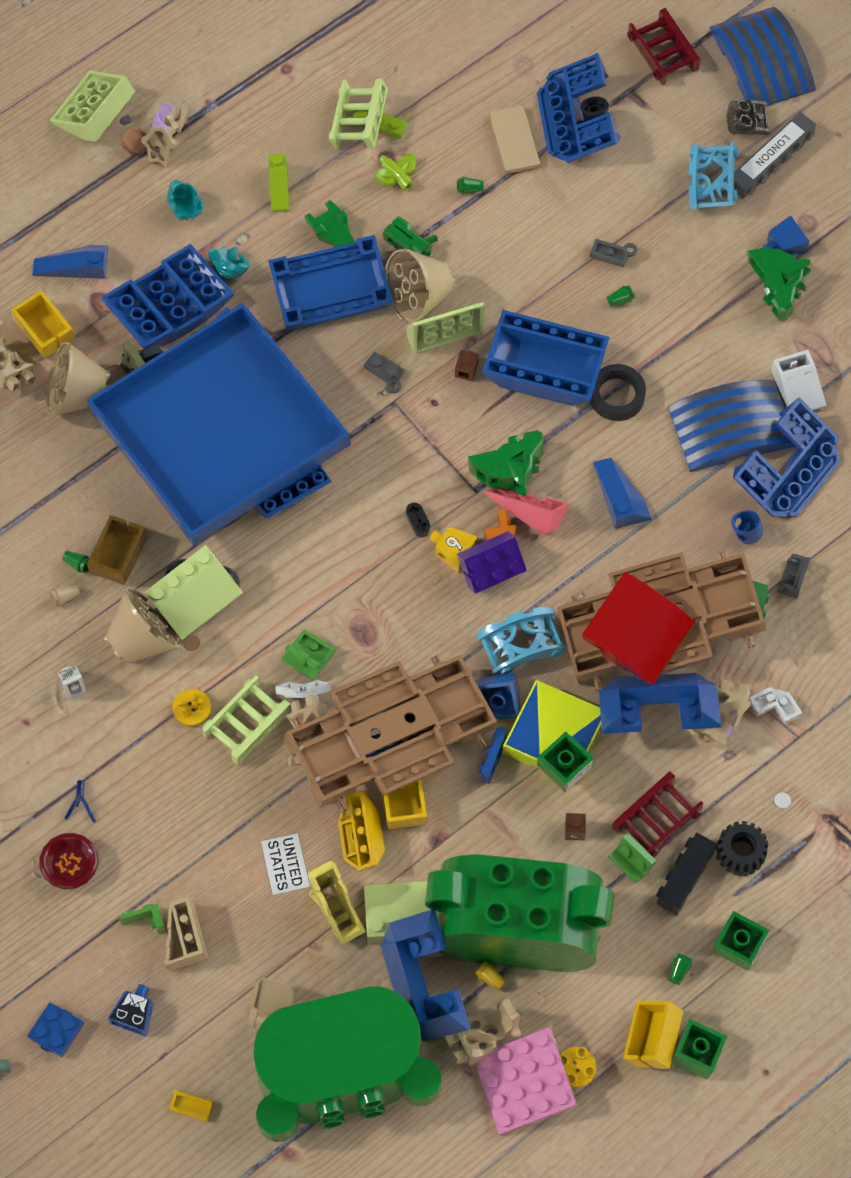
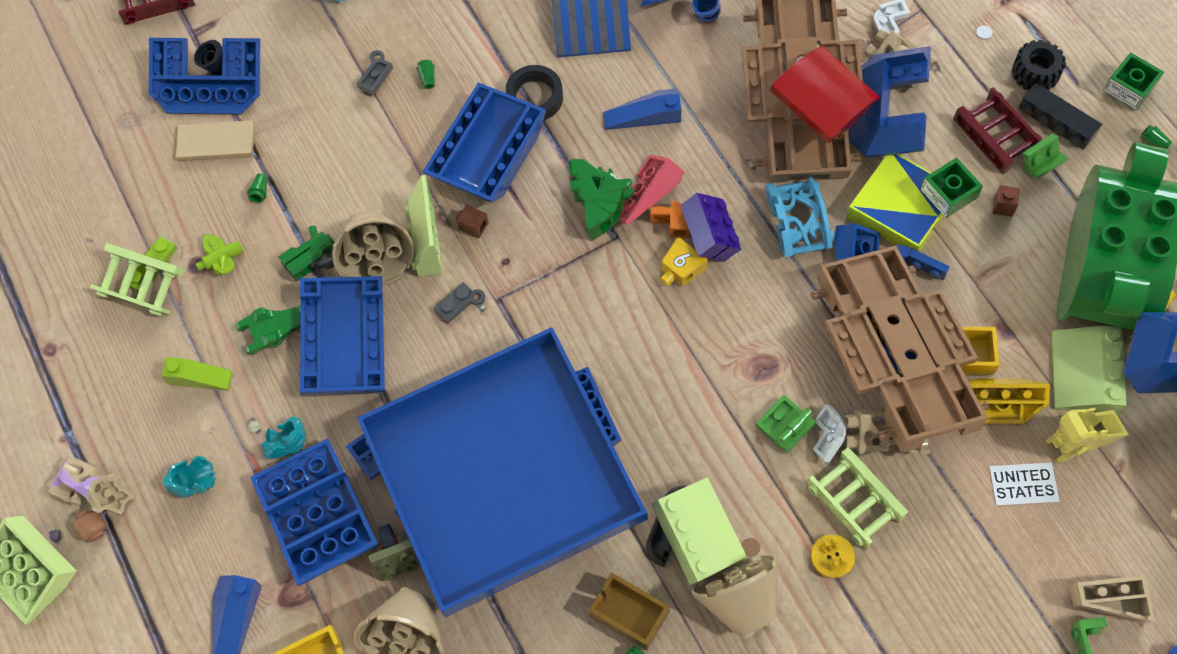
camera: 75 degrees left, 0 degrees up
(414, 521) = (641, 295): black beam -> none

